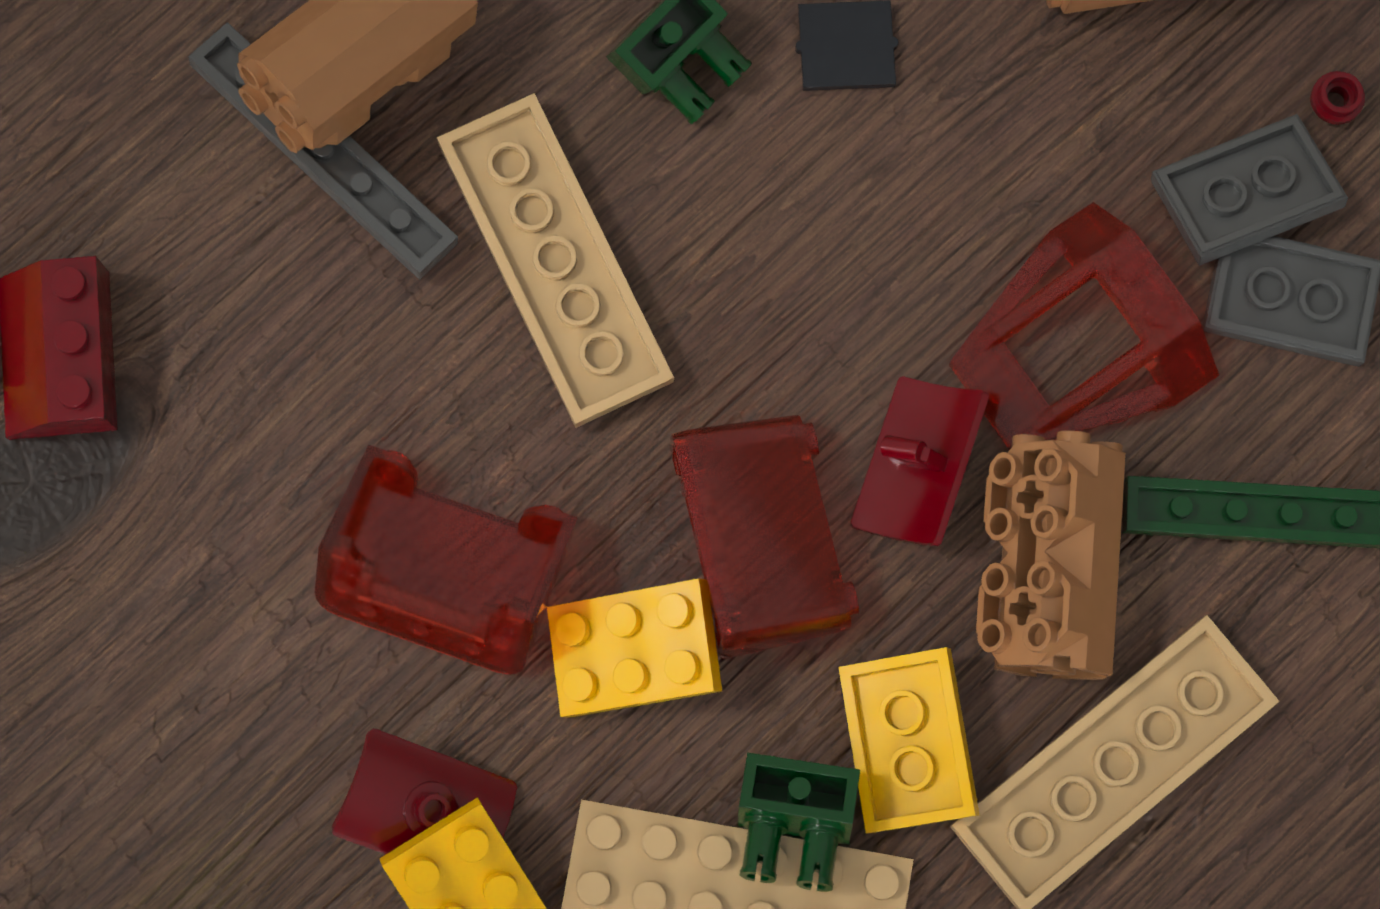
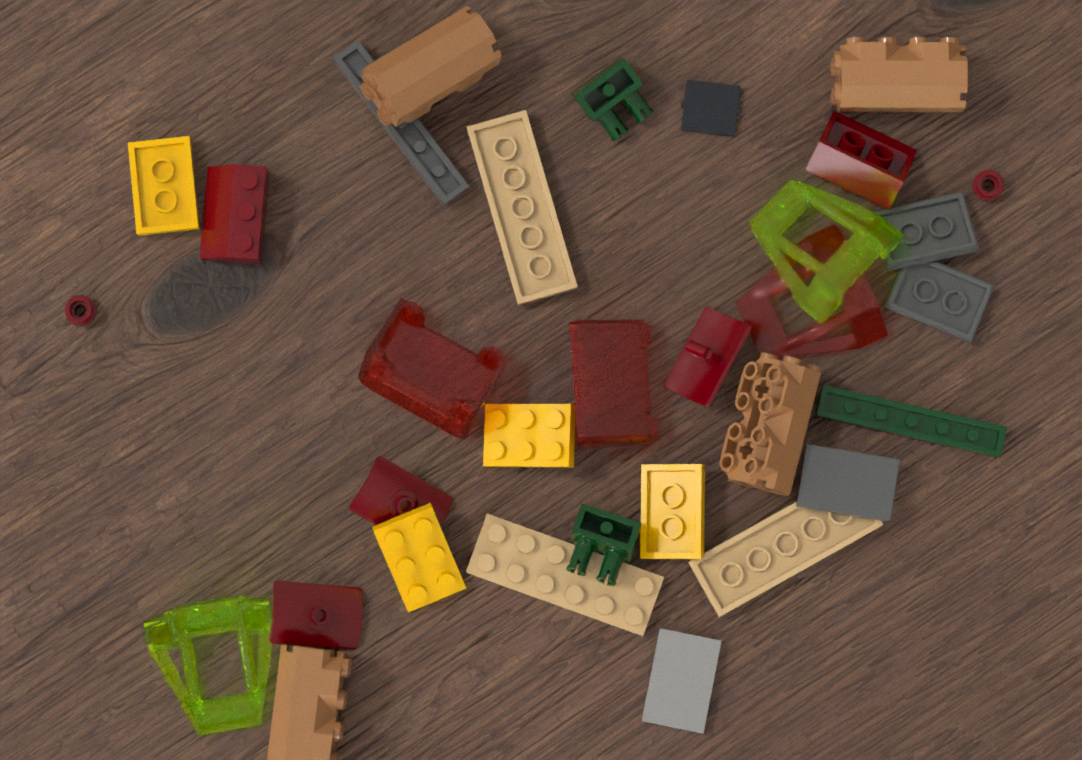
camera: 20 degrees right, 5 degrees up
(1118, 89) = (861, 160): none -> dark red slope
(1121, 281) = (834, 277): none -> clear neon green windscreen
(1205, 638) = (847, 482): none -> dark grey tile

